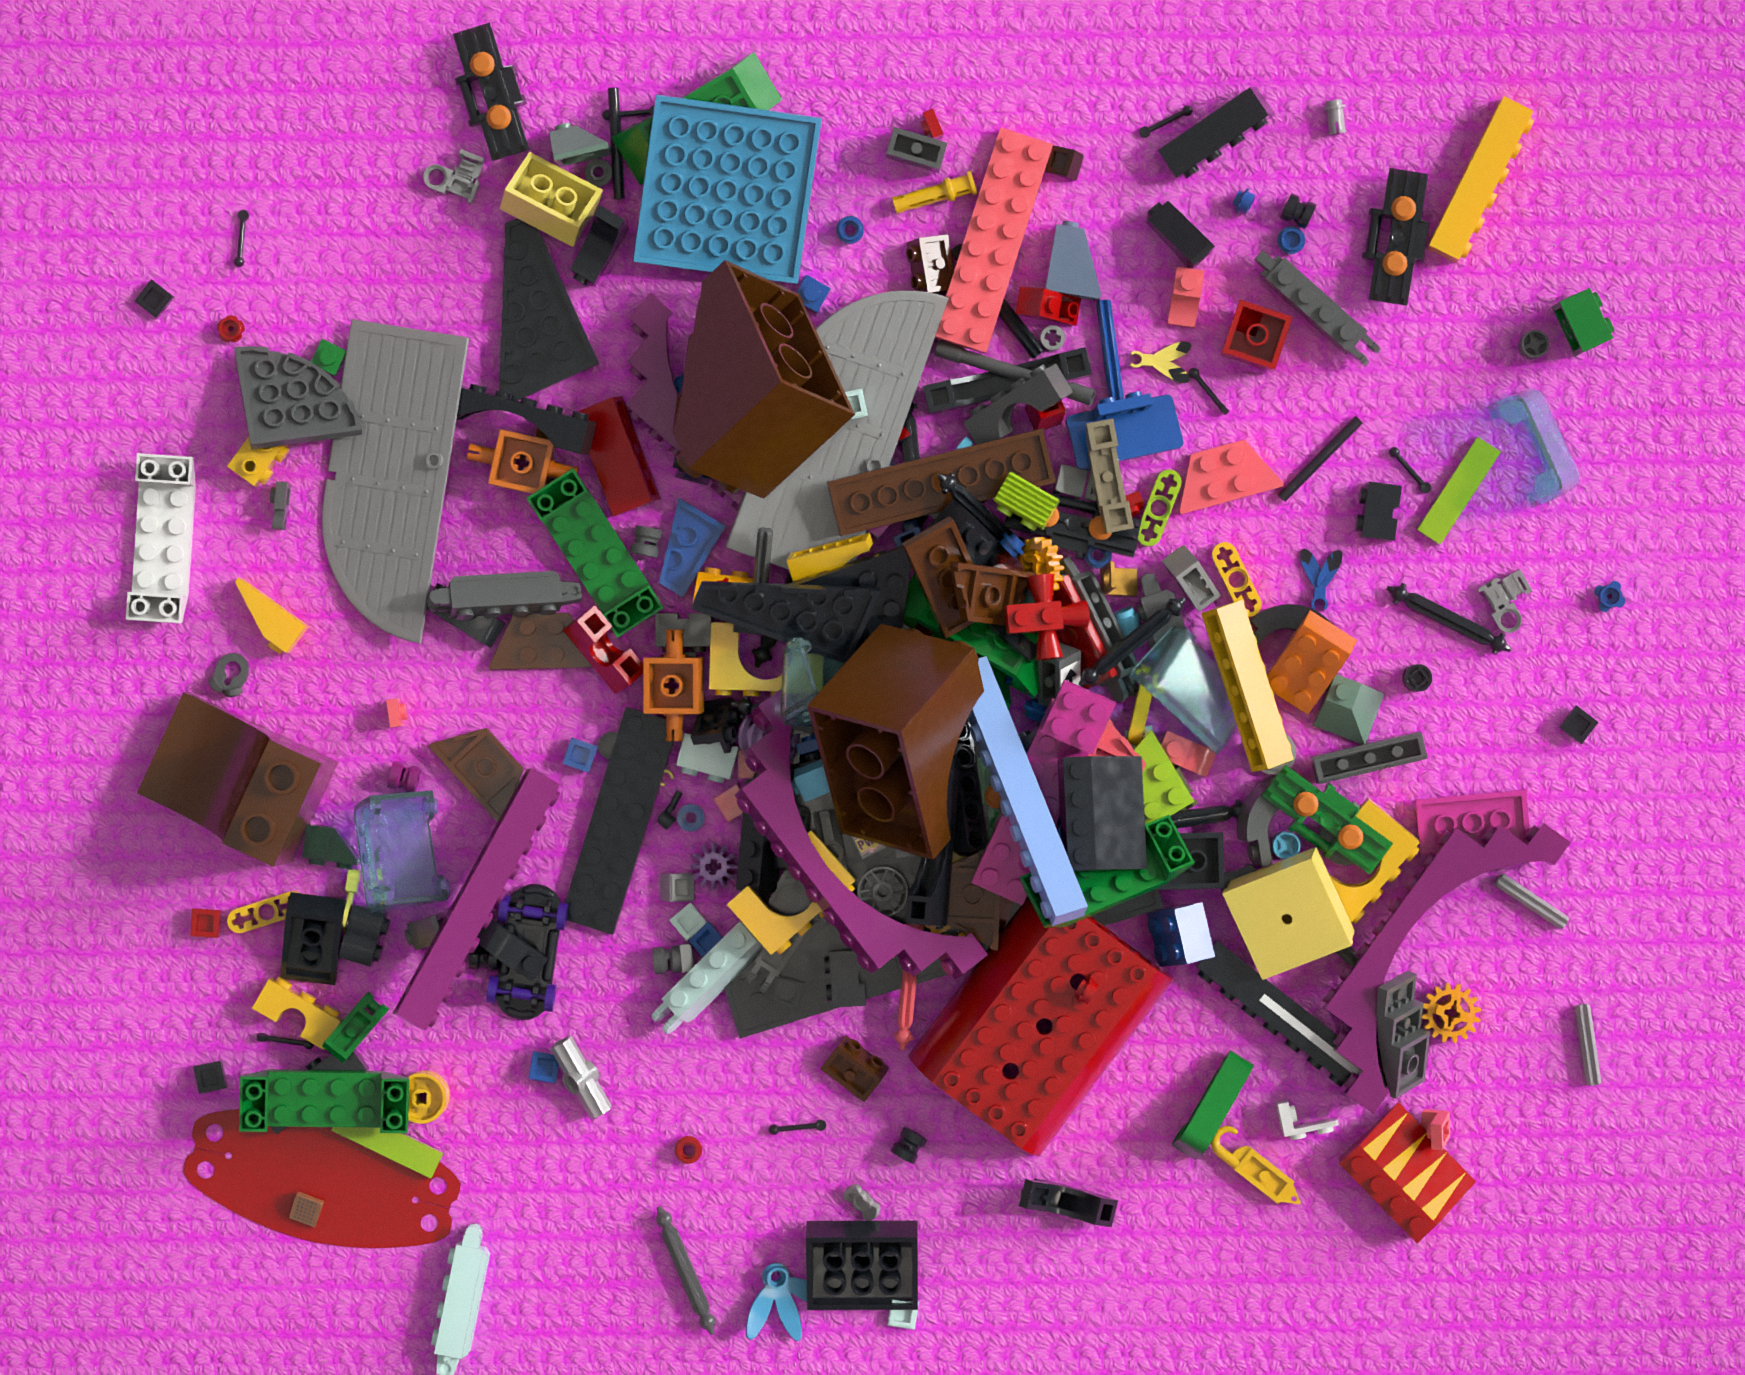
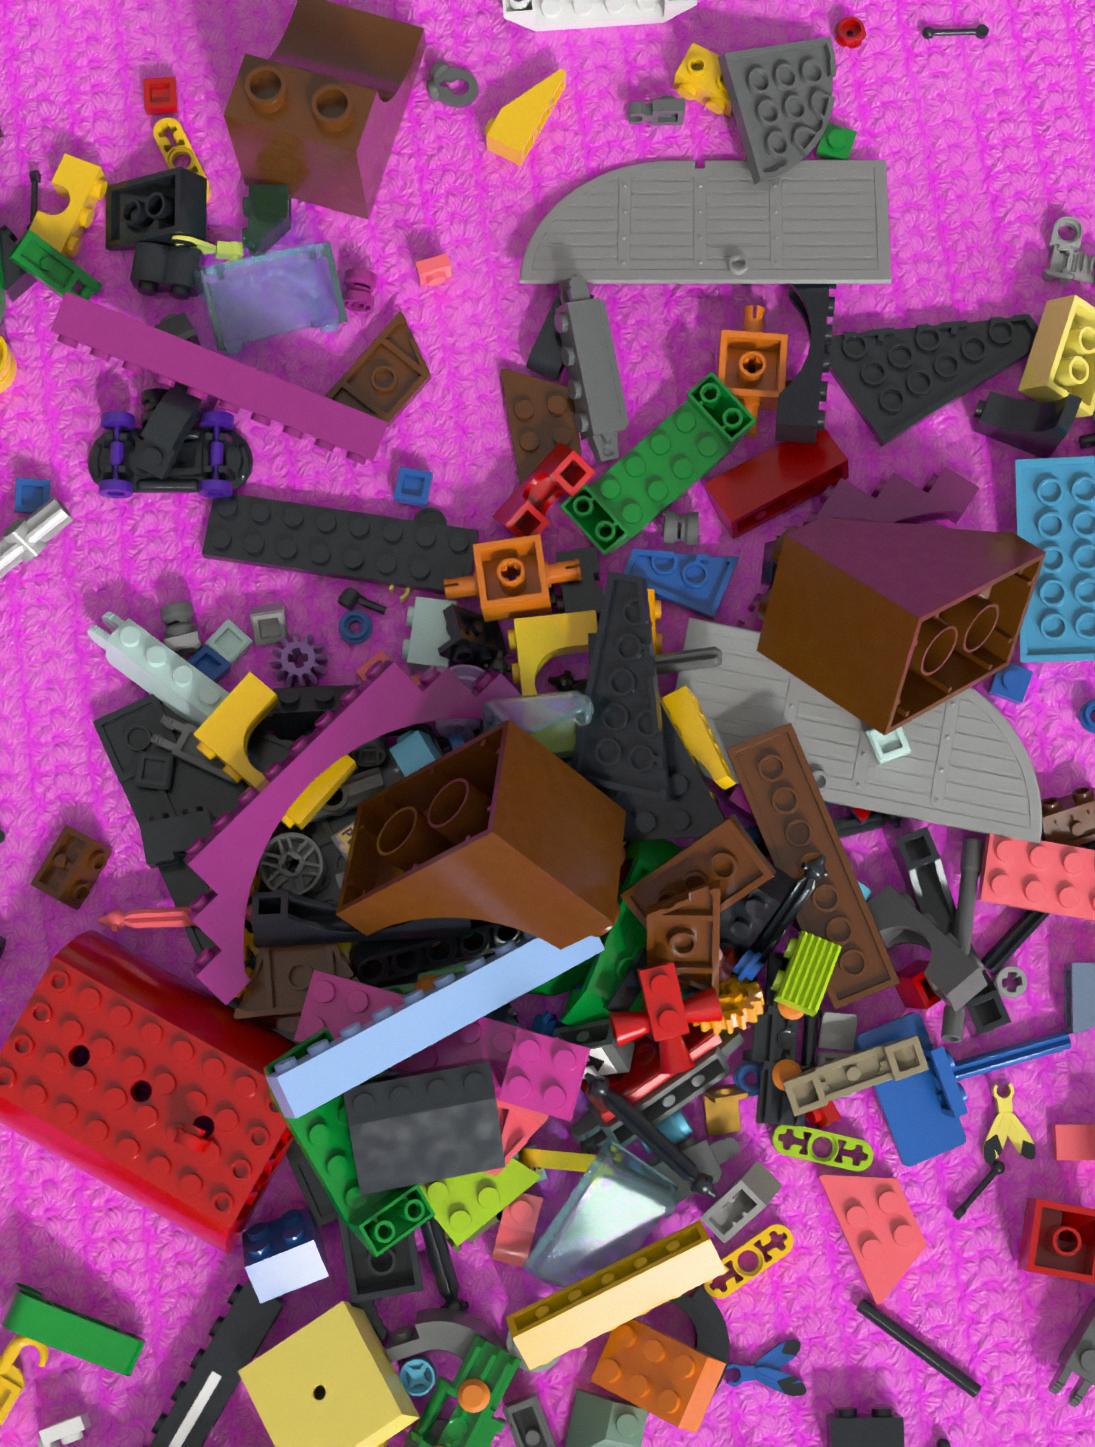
camera: 75 degrees right, 10 degrees down
(1048, 305) = (1050, 970): red slope -> none

